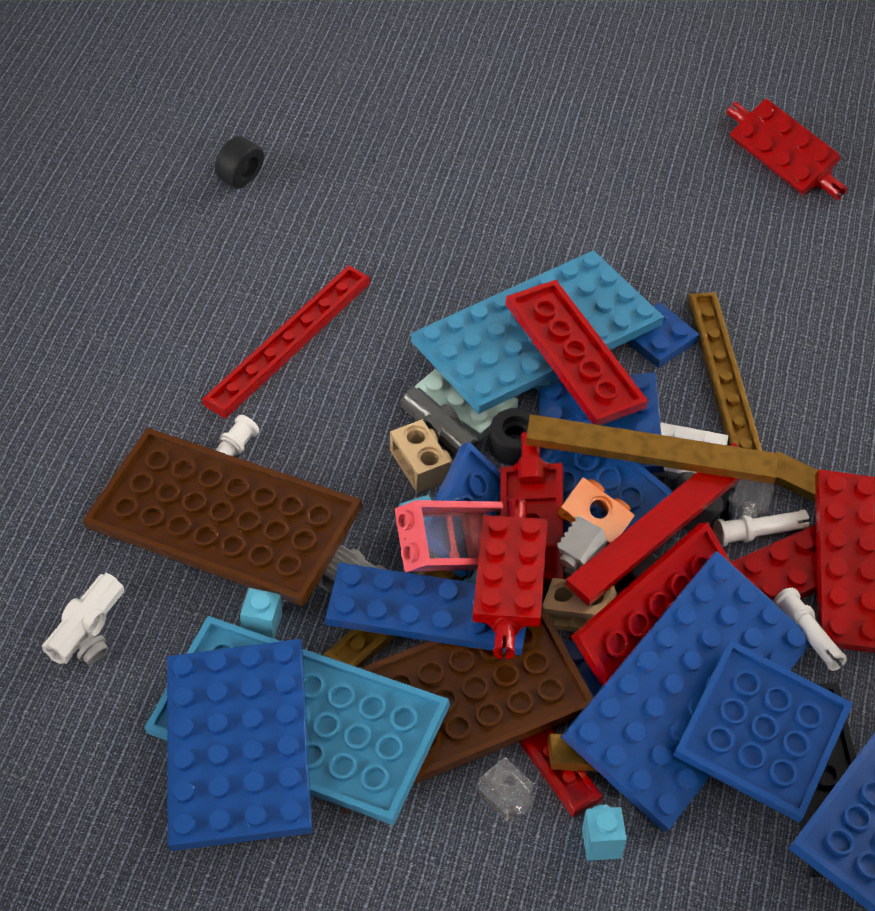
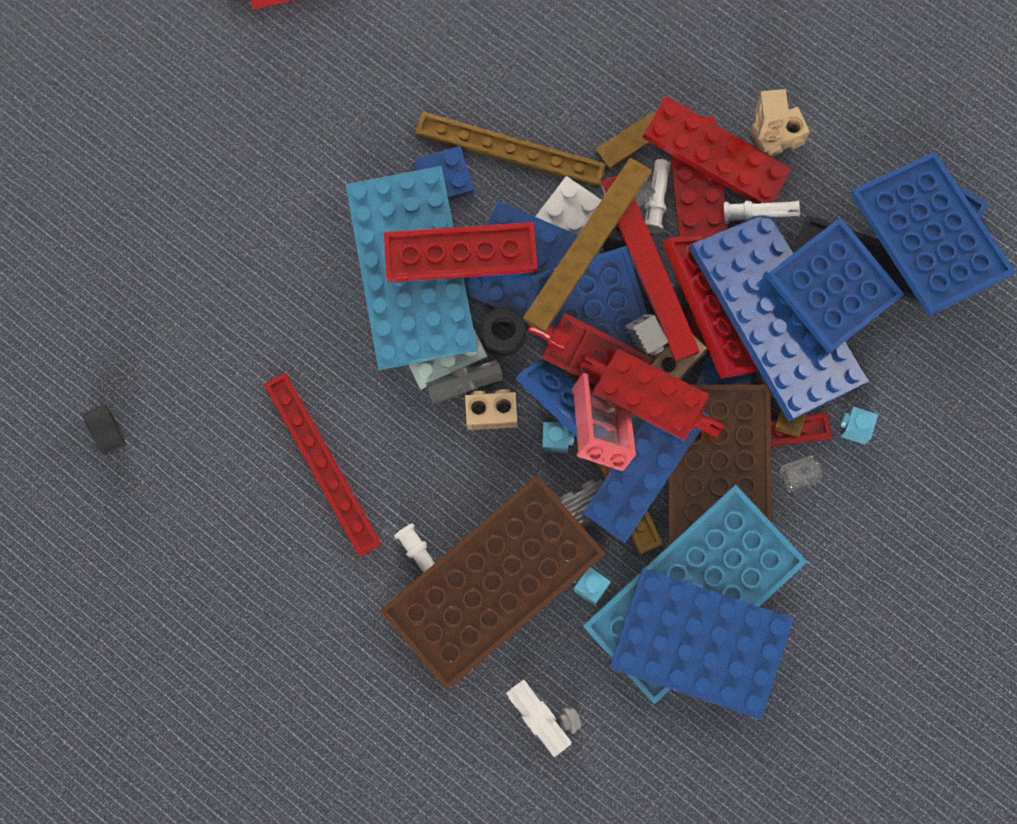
camera: 60 degrees left, 25 degrees up
(589, 493) = (634, 307): orange brick -> none

